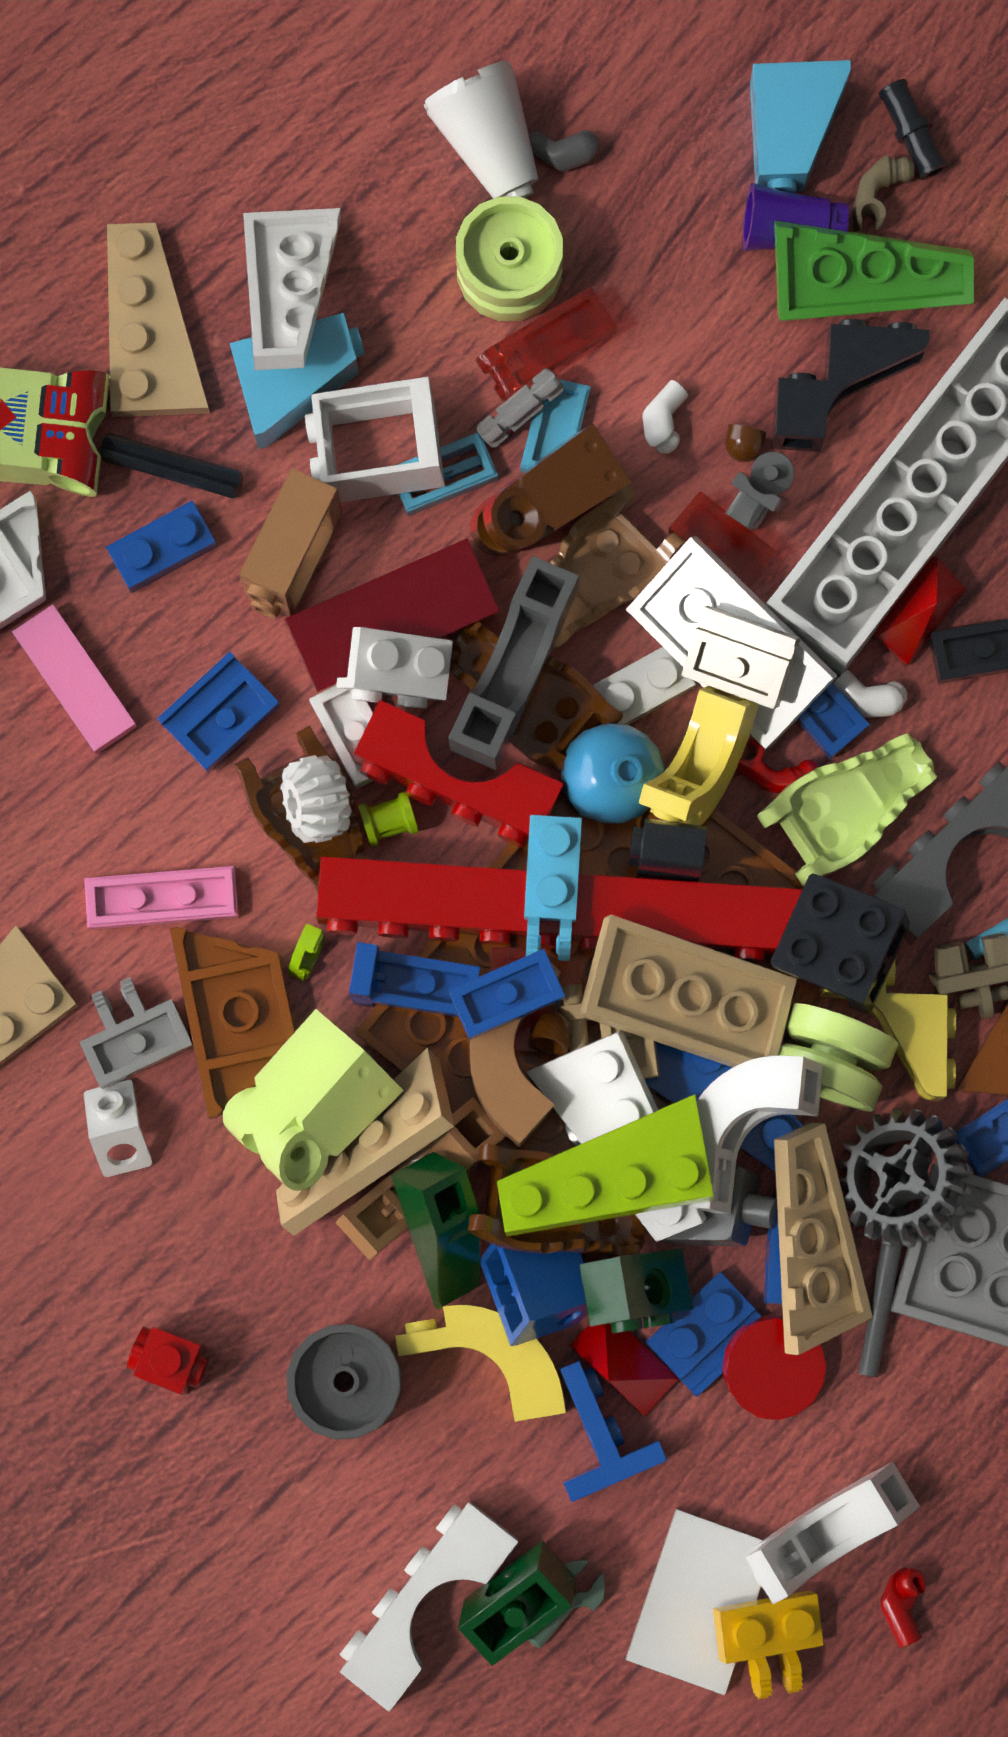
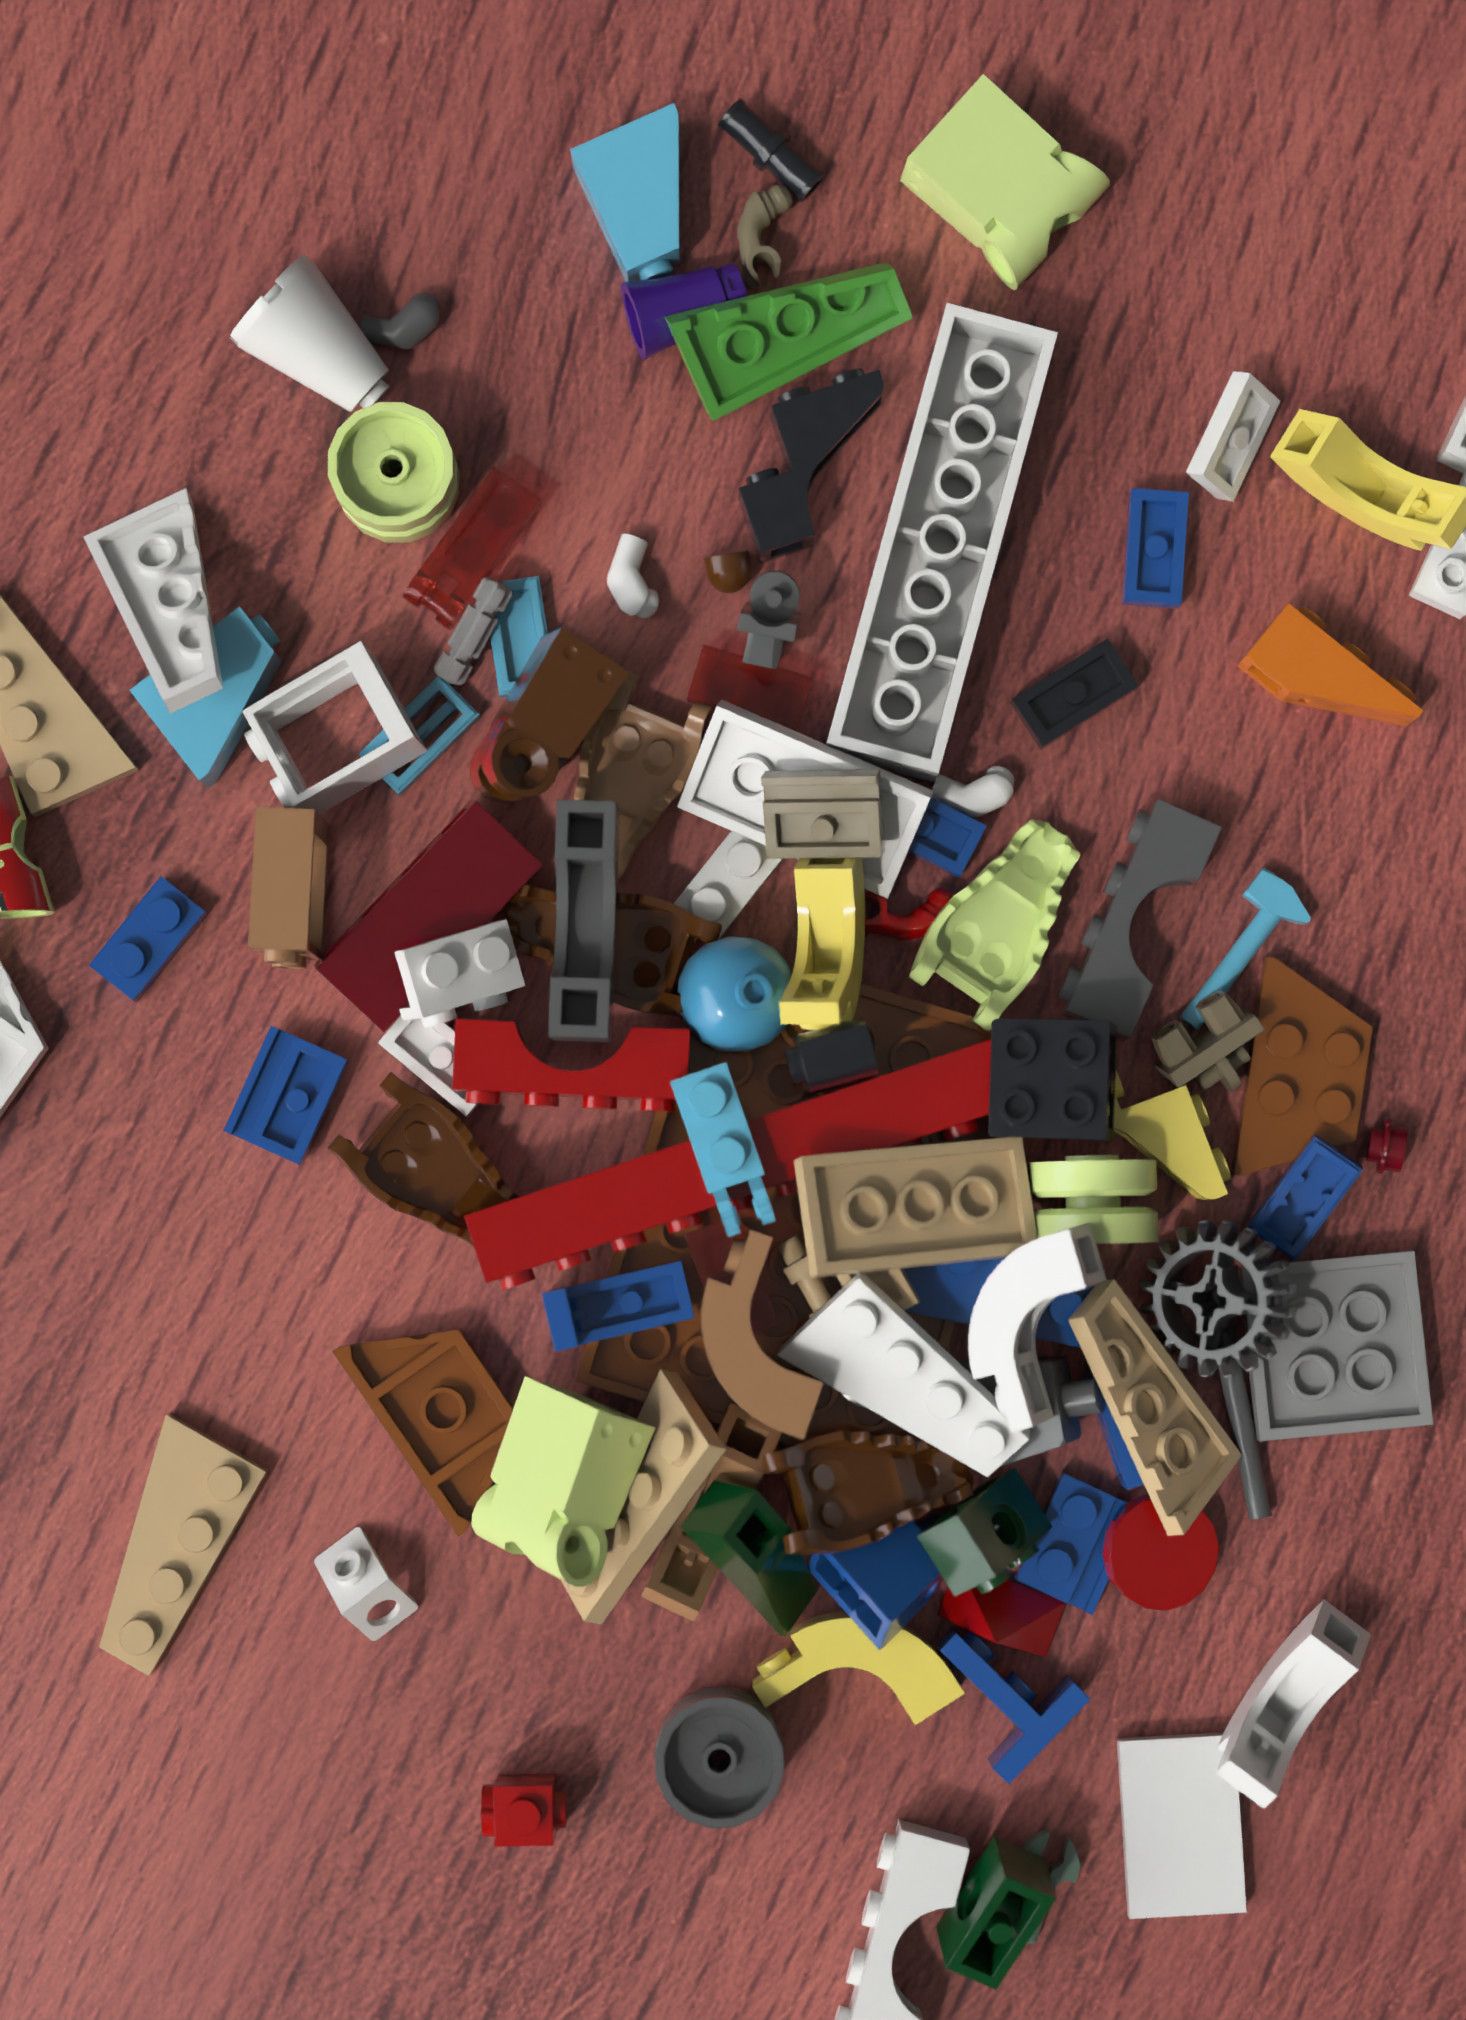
camera: 25 degrees left, 5 degrees up
(74, 679) = (115, 1122): bright pink tile -> none
(136, 1042) = (347, 1486): light grey hinge -> none
(161, 898) = (308, 1319): bright pink tile -> none
(171, 465) = (121, 846): black axle -> none
(306, 952) = (489, 1316): lime tile -> none
(315, 798) = (431, 1152): white gear -> none
(388, 819) = (516, 1137): lime bush -> none
(506, 994) = (725, 1289): blue plate -> none
(551, 1034) = (787, 1303): reddish brown hinge -> none
(622, 1173) = (926, 1426): lime wing -> none
(767, 1629) = (1251, 1836): yellow hinge -> none
(898, 1602) = (1385, 1741): red arm -> none
(920, 611) = (990, 679): red slope -> none

